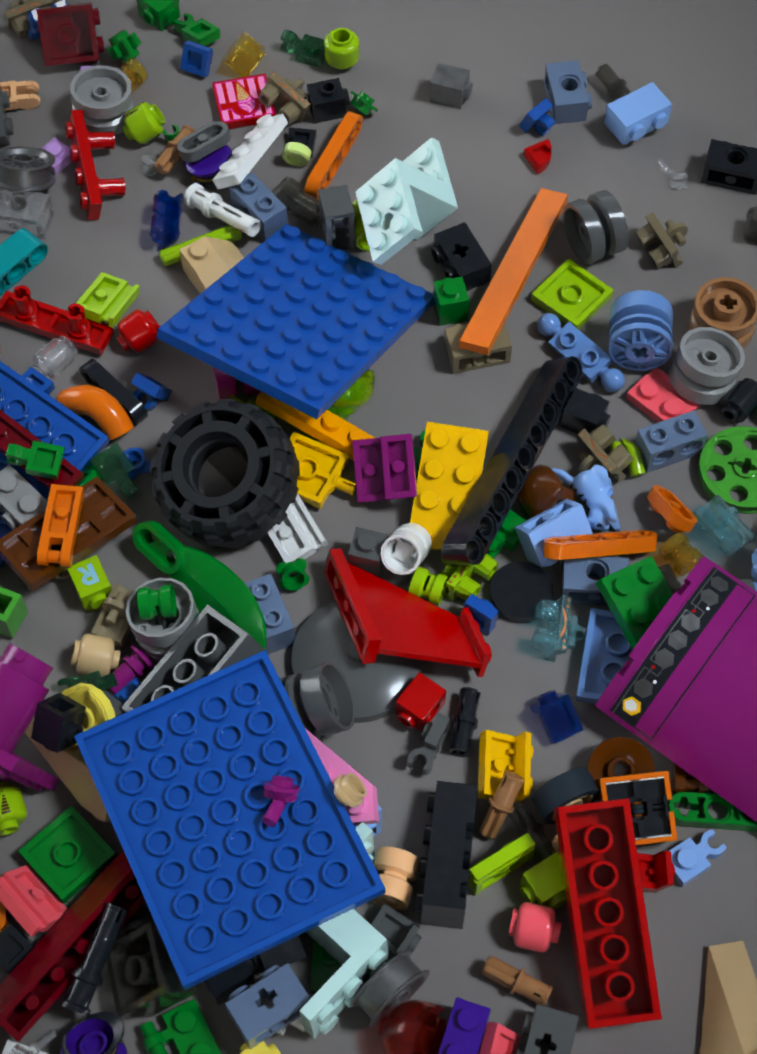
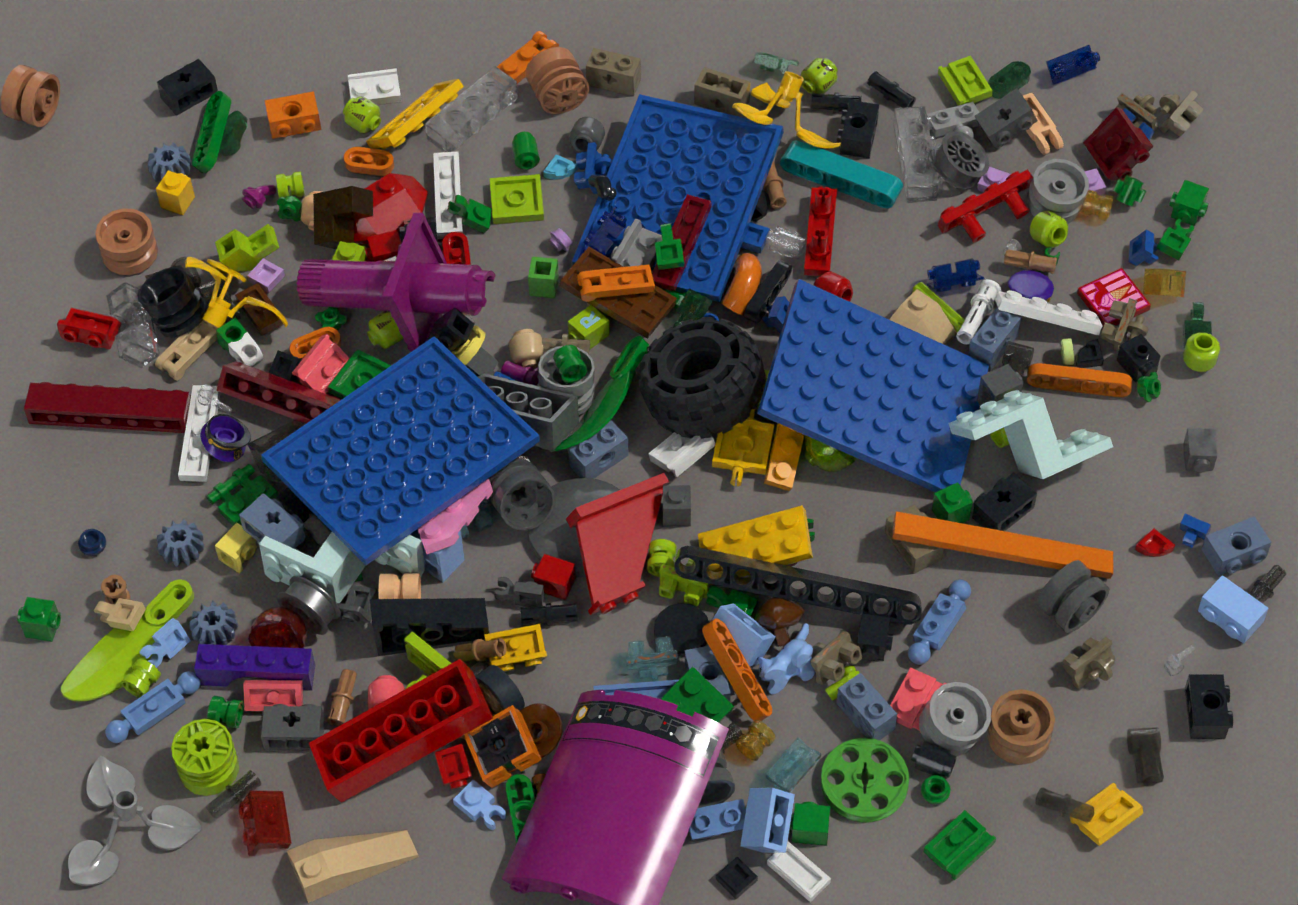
camera: 75 degrees right, 5 degrees down
(88, 976) = (270, 413): black pin -> none
(94, 678) = (498, 349): clear green plate -> none
(108, 299) = (854, 259): lime plate -> none
(203, 141) = (1040, 274): dark grey plate -> none
(281, 791) = (421, 471): magenta plate -> none
(295, 581) = (640, 460): green plate -> none
(349, 790) = (435, 516): tan plate -> none
(385, 468) = (754, 492): magenta slope -> none
(406, 548) = (684, 527): white wheel -> none
(483, 612) = (648, 601): blue plate -> none
(557, 715) = (572, 677): clear blue bracket -> none
(572, 294) = (1003, 604): lime tile -> none
(641, 330) = (969, 654): medium blue wheel -> none
(673, 510) = (792, 725): orange plate -> none

